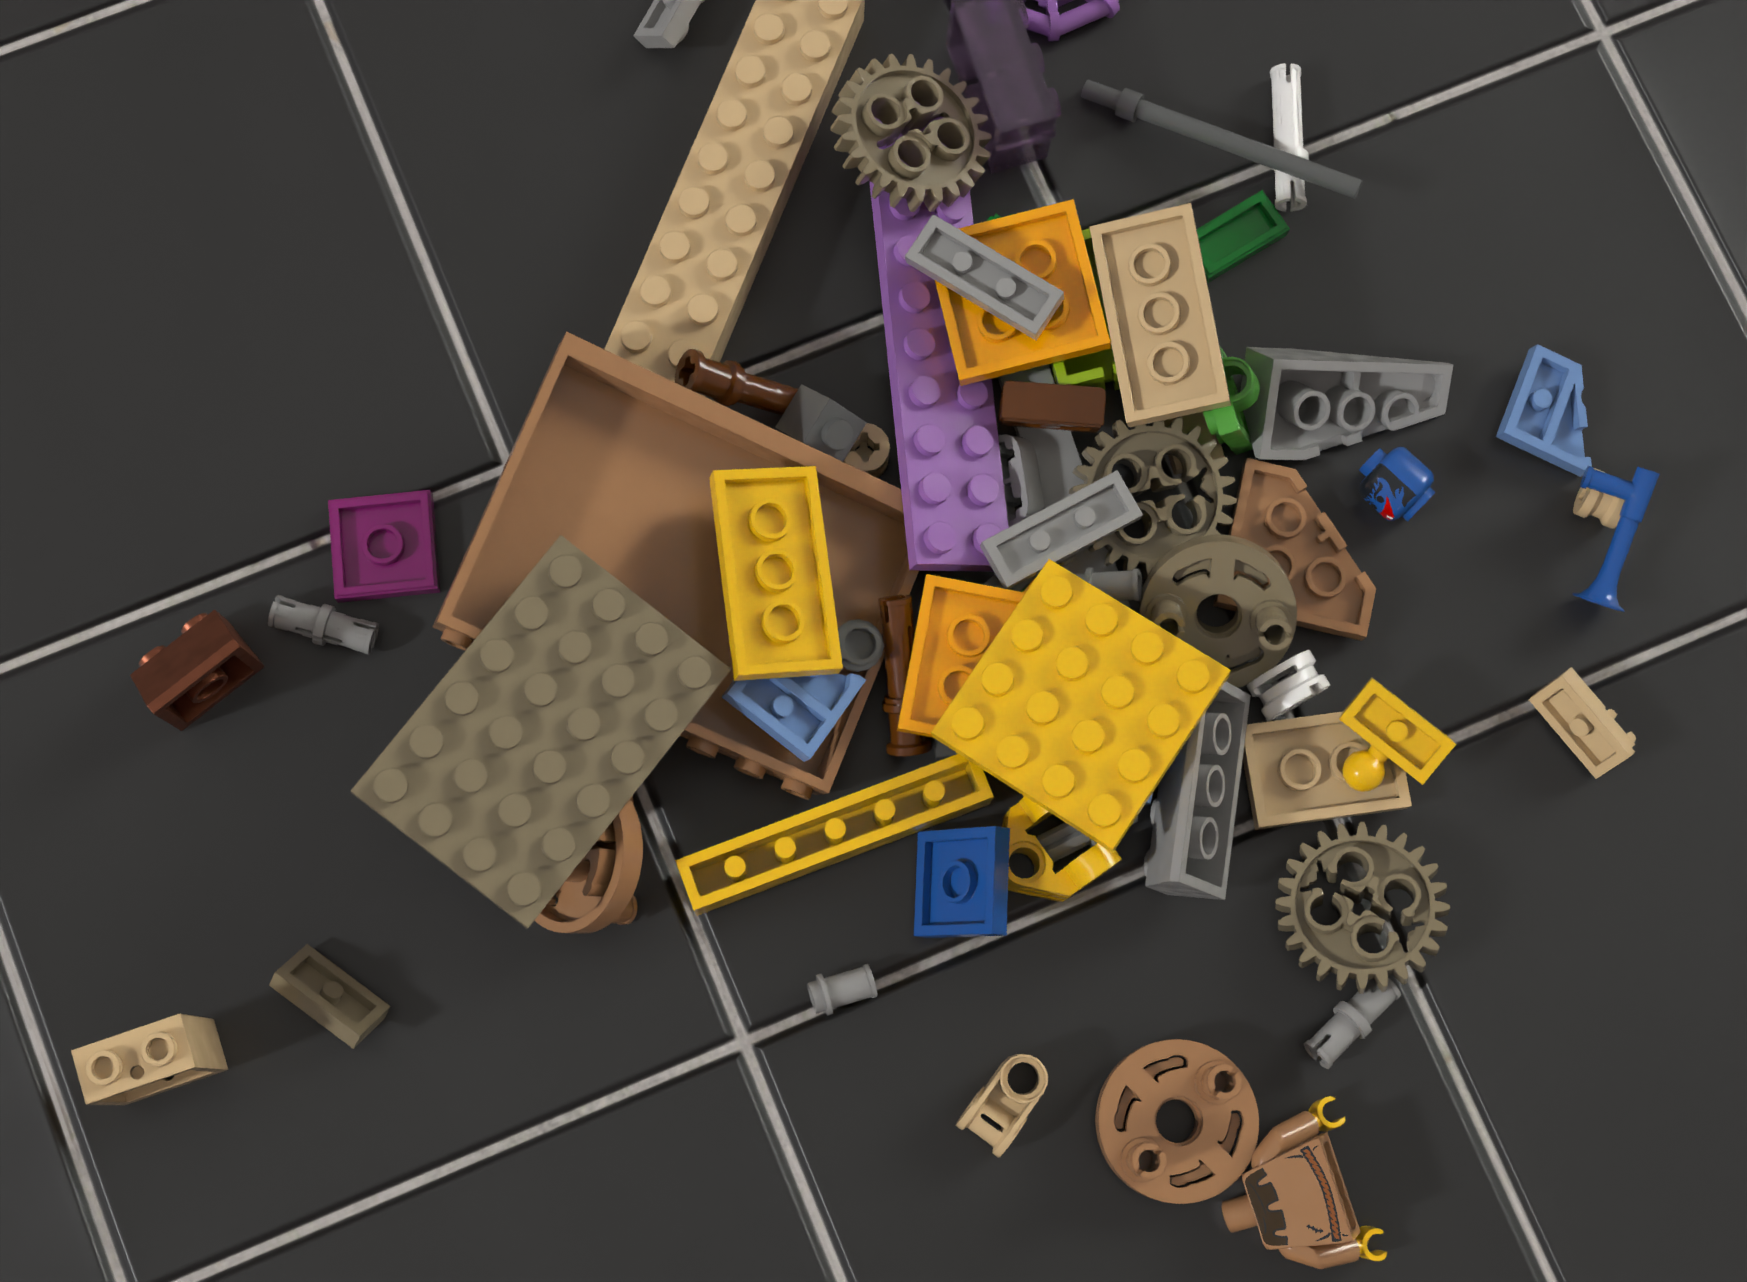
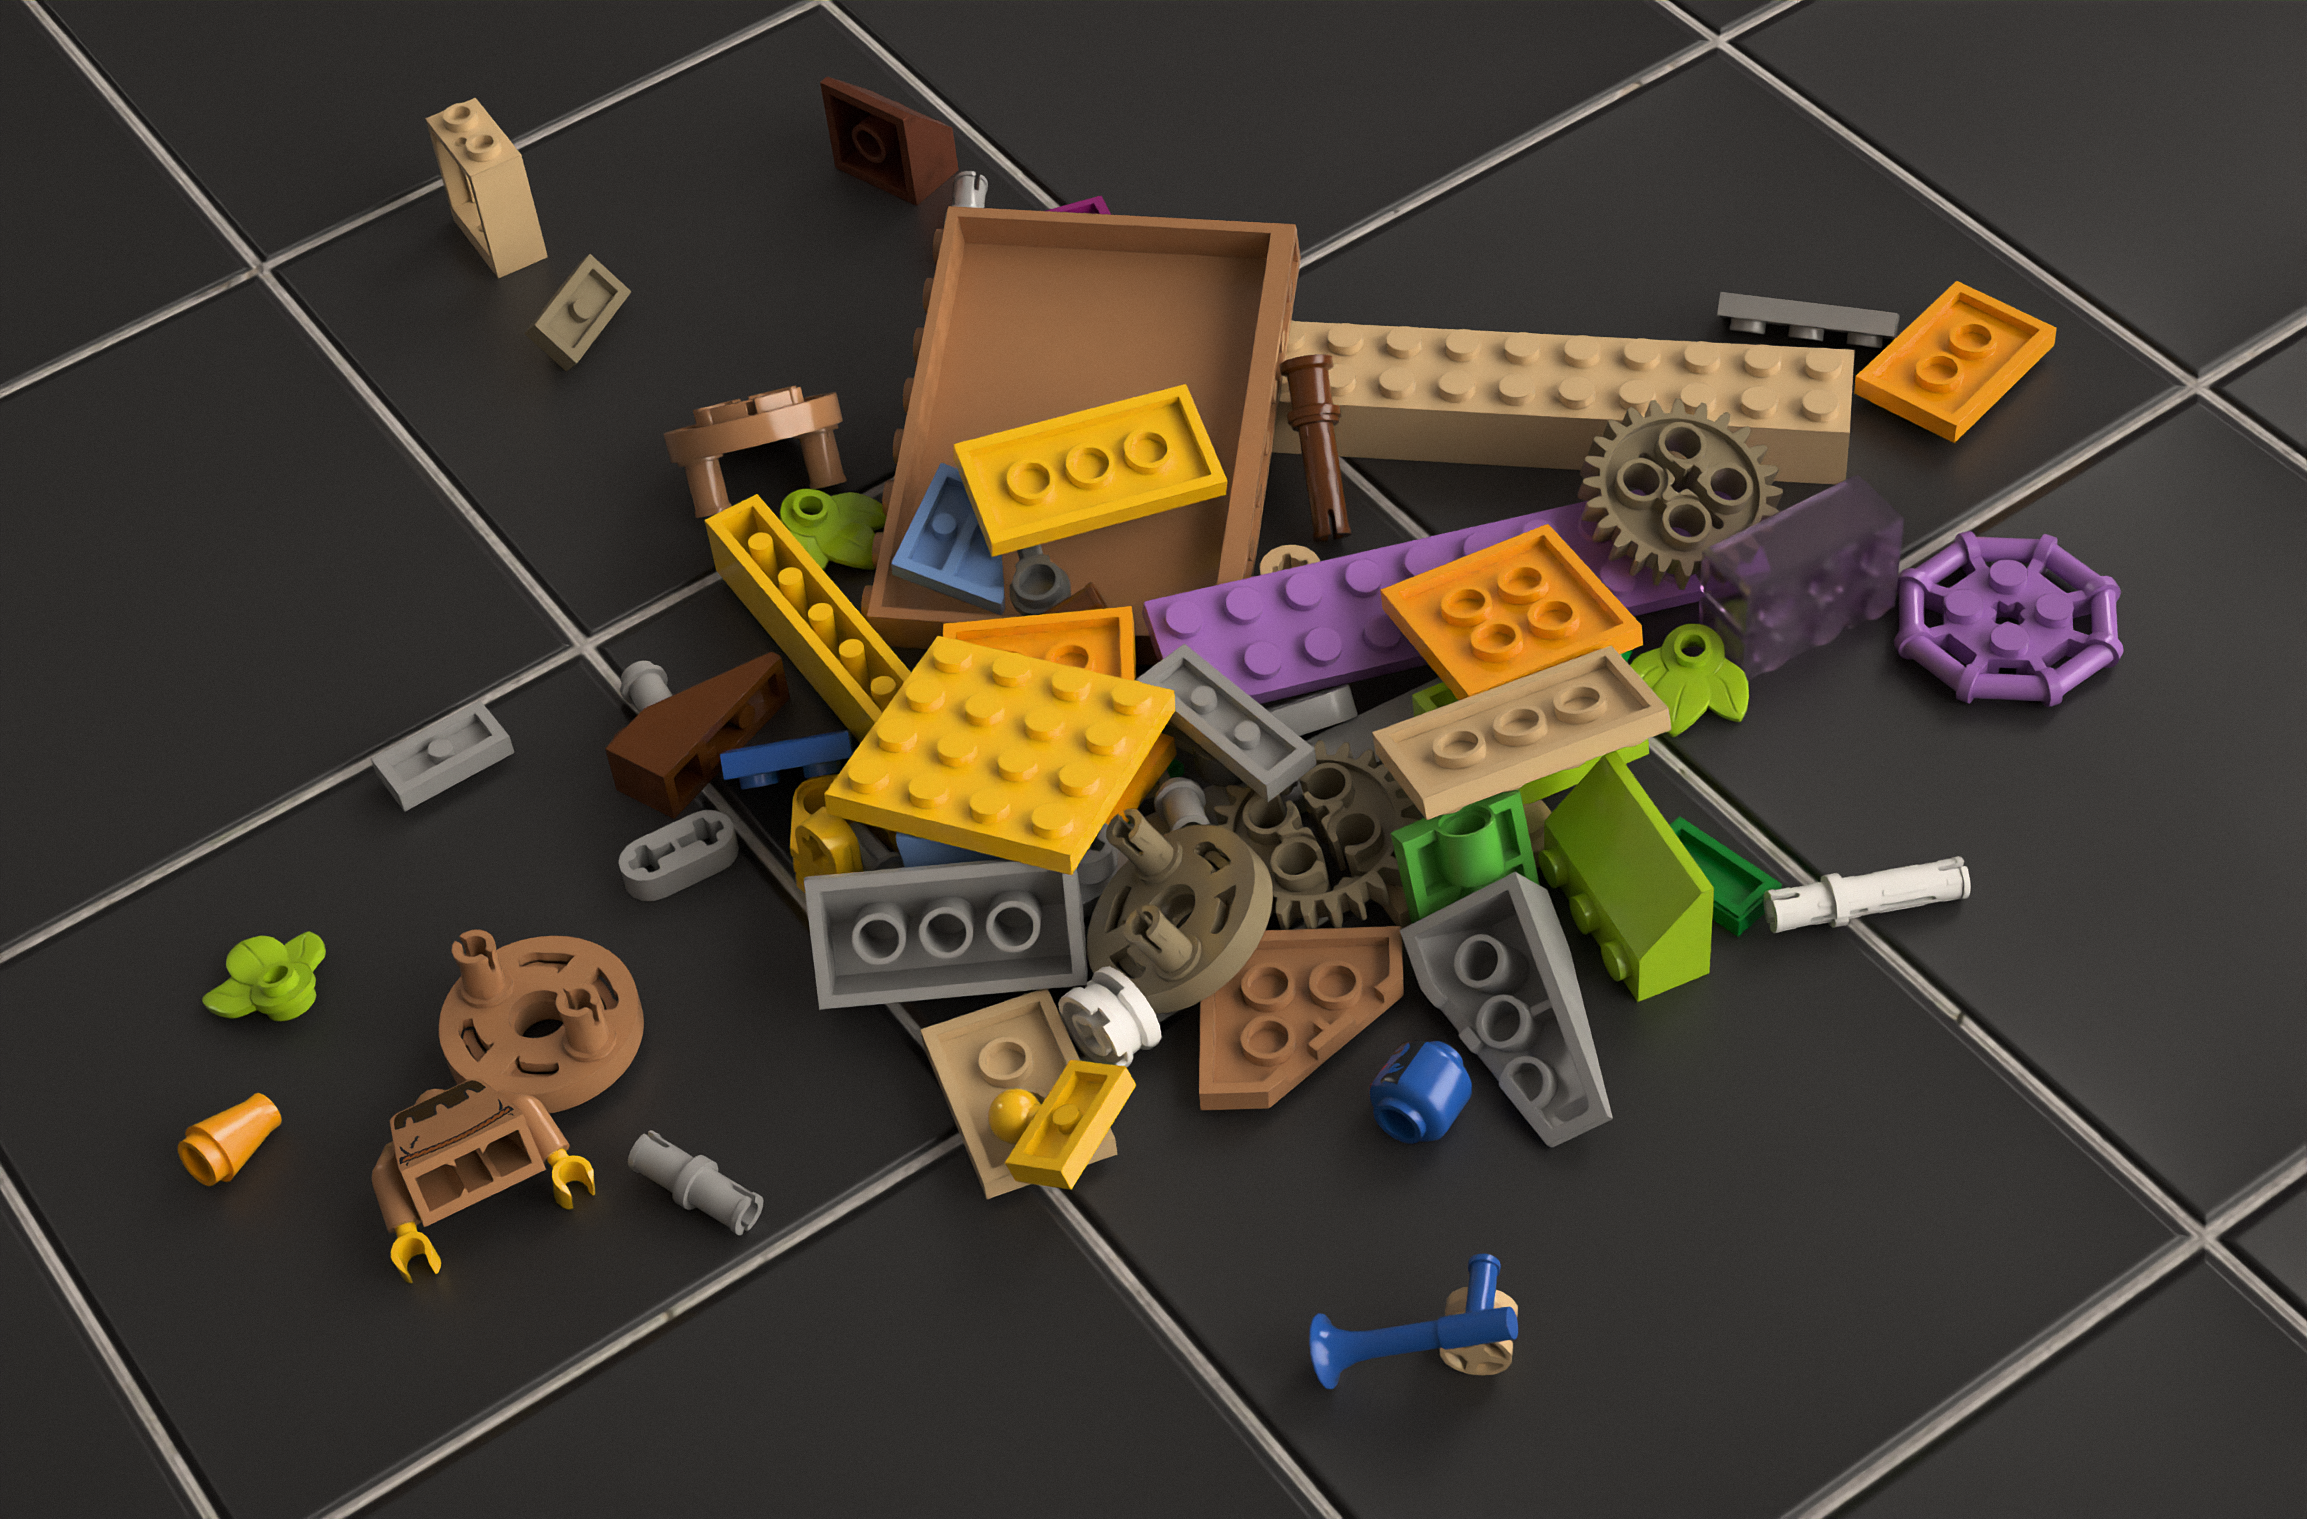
camera: 90 degrees right, 30 degrees down
(541, 731) = (857, 317): dark tan plate -> none
(688, 803) = (839, 530): none -> lime plate
(820, 423) = (1298, 513): dark grey brick -> none
(858, 1176) = (442, 755): none -> light grey plate
(905, 968) = (678, 742): none -> reddish brown slope
(984, 277) = (1504, 563): light grey plate -> none
(1003, 1105) = (549, 864): tan piece -> none
(1028, 985) = (678, 855): none -> light grey beam
(1052, 406) = (1385, 684): reddish brown slope -> none
(1055, 182) = (1694, 683): none -> lime plate
(1132, 106) = (1838, 737): dark grey bar -> none
(1273, 284) = (1629, 881): none -> lime slope
(1336, 945) = (870, 1174): dark tan gear -> none
(1548, 411) = (1587, 1250): medium blue wing -> none
(1584, 723) = (1135, 1378): tan plate -> none

